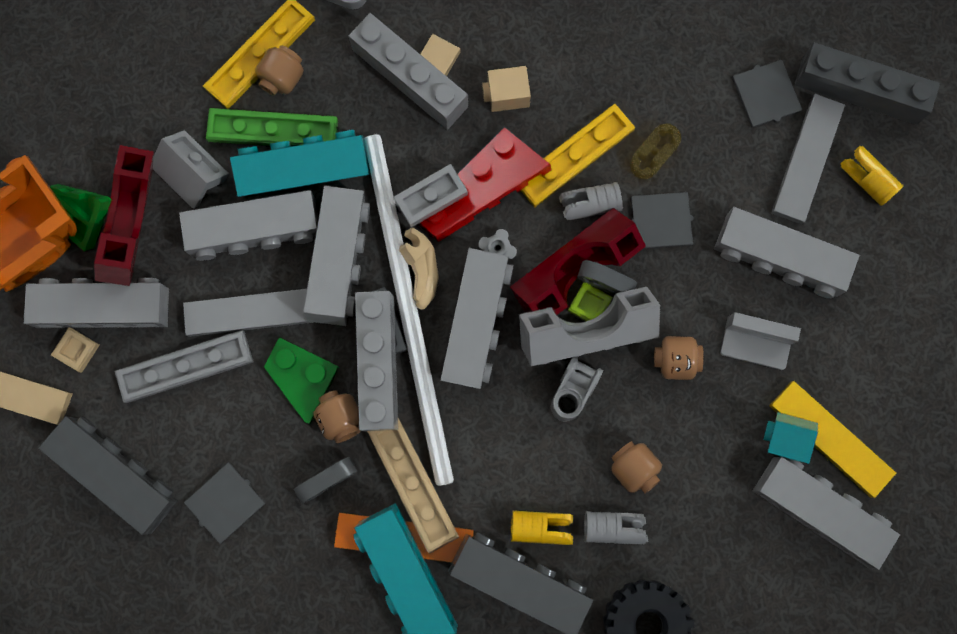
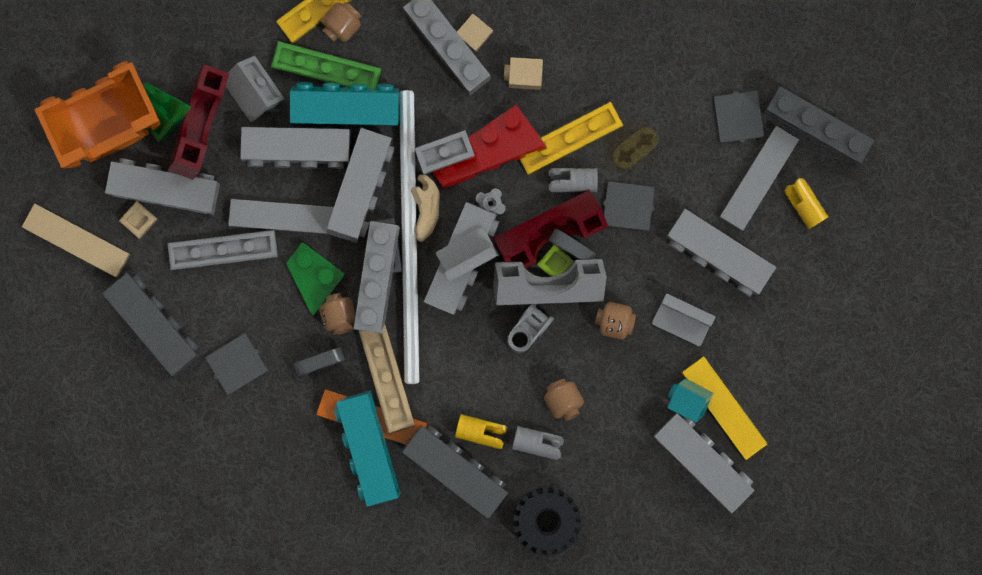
camera: 15 degrees right, 5 degrees up
(482, 310) = (466, 254): none -> light grey panel

